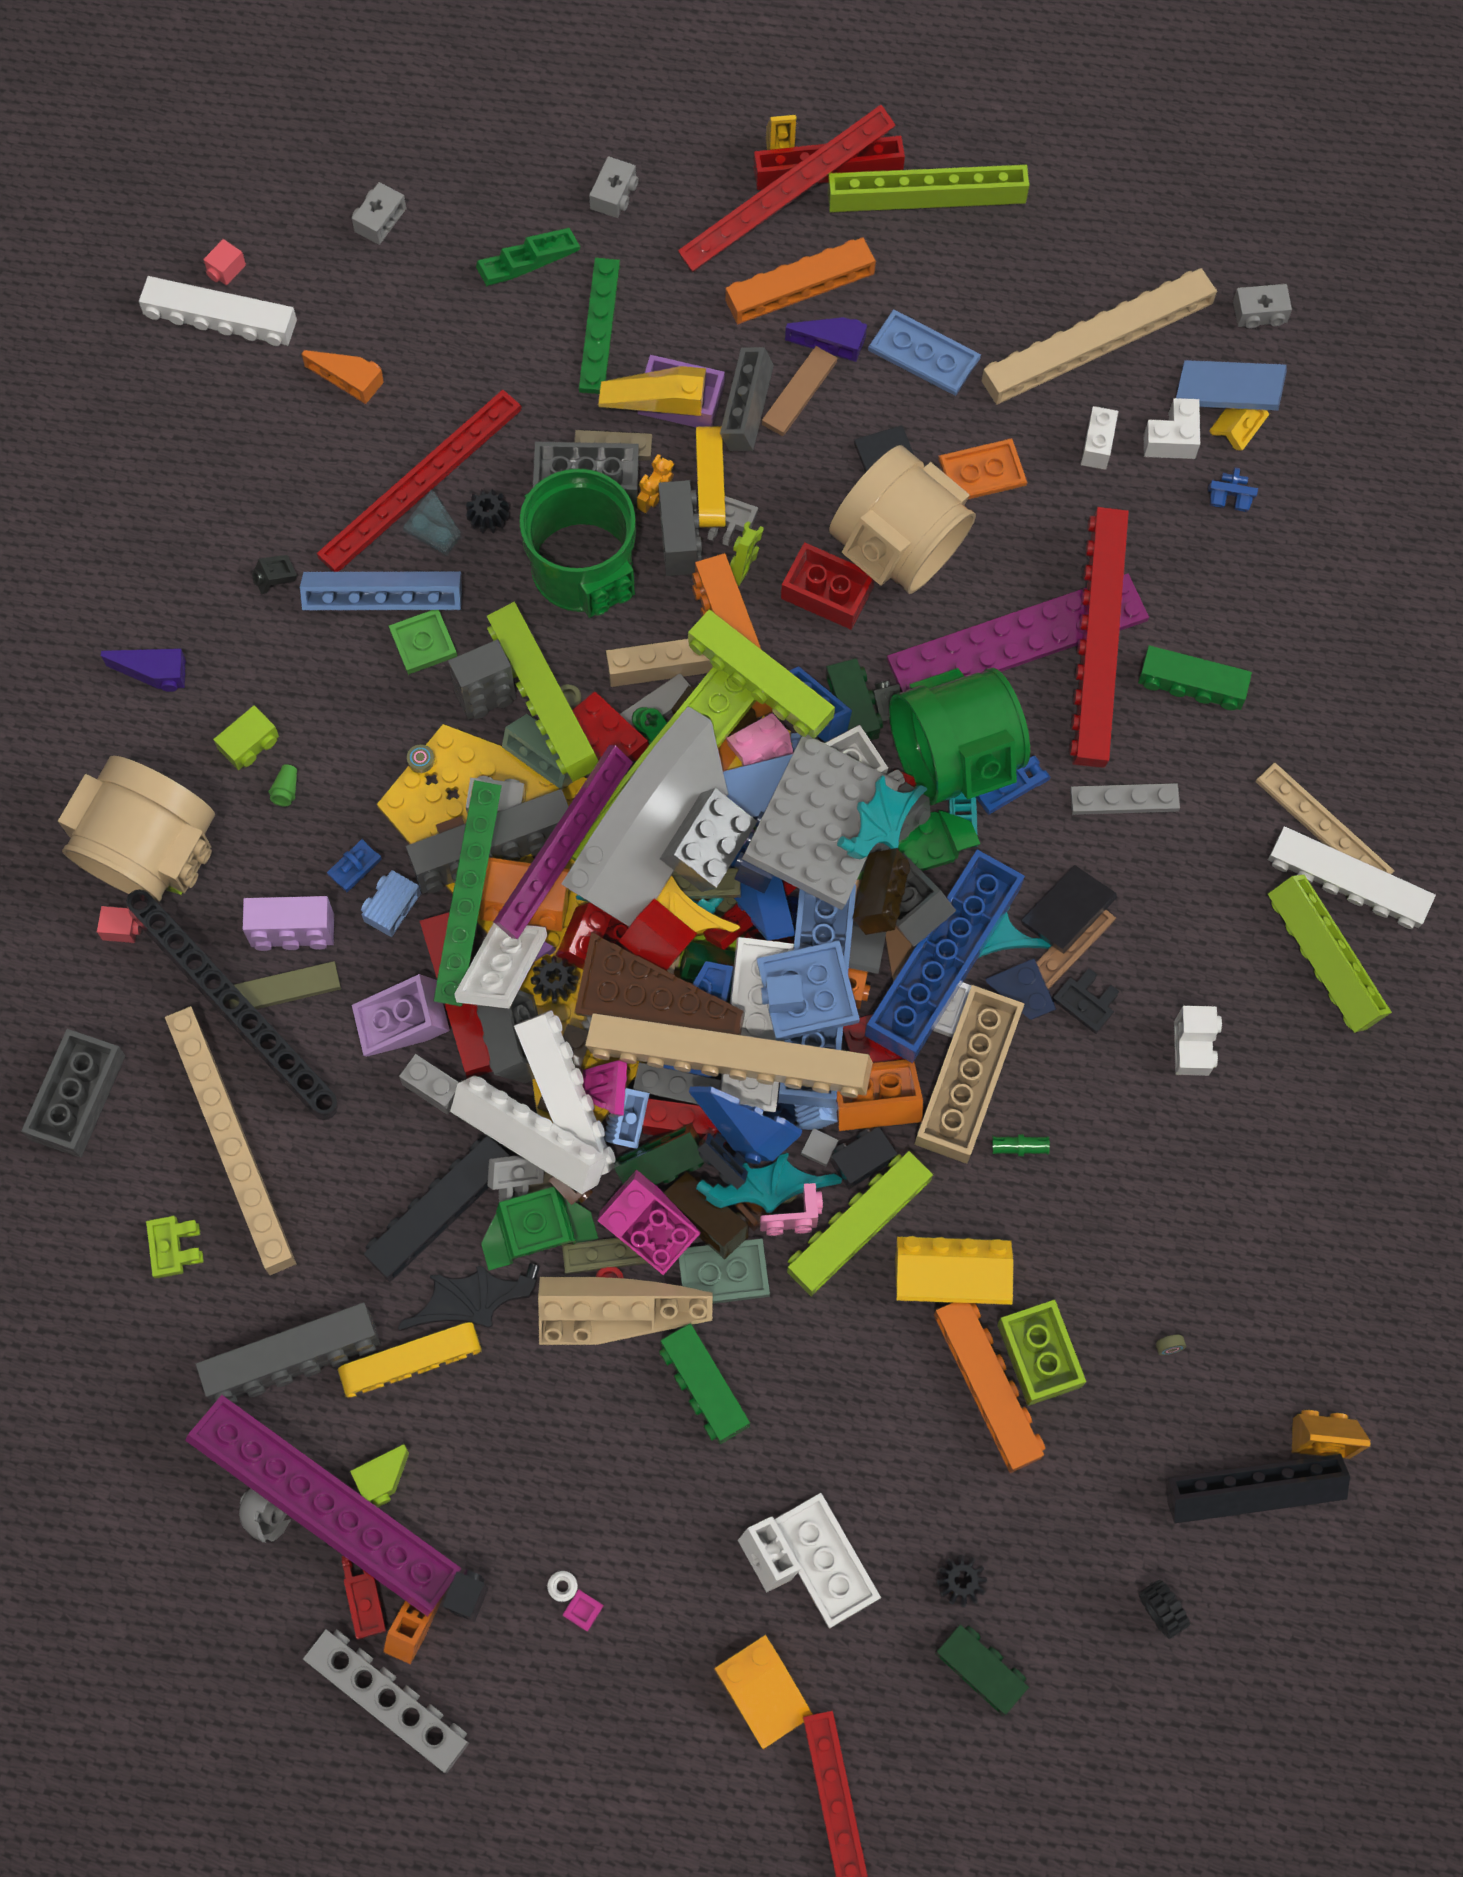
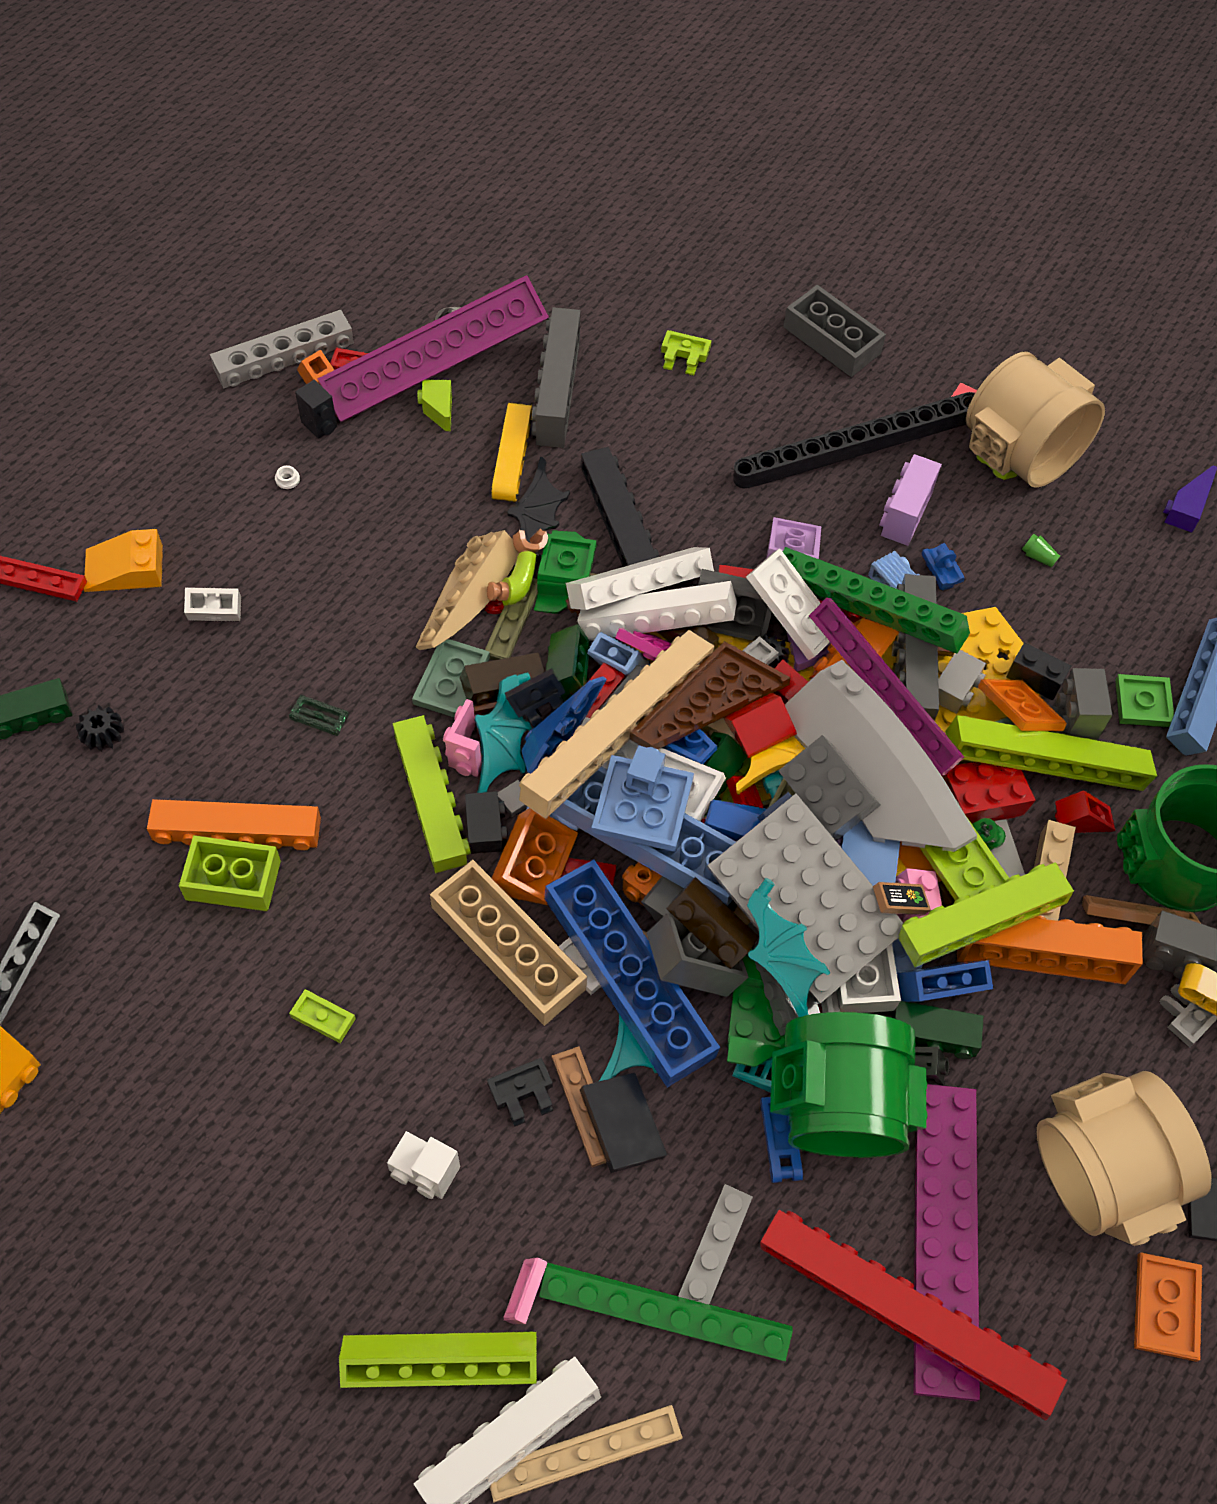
camera: 115 degrees right, 10 degrees down
(230, 1141) = (746, 406): tan brick -> none
(246, 738) = (1096, 539): lime brick -> none
(289, 986) = (858, 491): olive tile -> none
(420, 758) = (1019, 640): olive tile -> none
(429, 1083) = (726, 542): light grey brick -> none
(449, 733) = (1039, 671): none -> black brick
(504, 730) = (1022, 705): none -> orange tile
(513, 1172) = (616, 555): light grey hinge -> none
(567, 979) = (761, 650): none -> light grey tile
(572, 695) = (1043, 791): olive tile -> none
(579, 653) = (1084, 813): none -> red slope
(583, 1610) = (262, 484): dark pink tile -> none
(585, 1256) = (516, 586): none -> piece
(648, 1222) = (521, 630): dark pink slope -> none
(656, 581) = (1128, 911): none -> medium nougat tile
(704, 1383) = (370, 624): green brick -> none
(745, 552) = (1142, 997): lime plate -> none
(782, 744) = (901, 898): none -> tile
(826, 1561) = (184, 645): white plate -> none
(827, 586) = (1074, 1057): red brick -> none
(831, 1404) = (338, 724): none -> clear green tile
(954, 1270) = (340, 837): yellow slope -> none
(1021, 1145) = (420, 958): green pin -> none
(1027, 986) = (563, 1038): dark blue wing -> none
(1099, 437) = (1168, 1461): white brick -> none
(1118, 1199) = (322, 1016): none -> lime plate
(1170, 1345) = (168, 988): olive tile -> none
(1194, 678) = (819, 1401): green brick -> none
(1195, 813) = (666, 1311): none -> green plate
(1241, 918) = (525, 1291): none -> bright pink tile

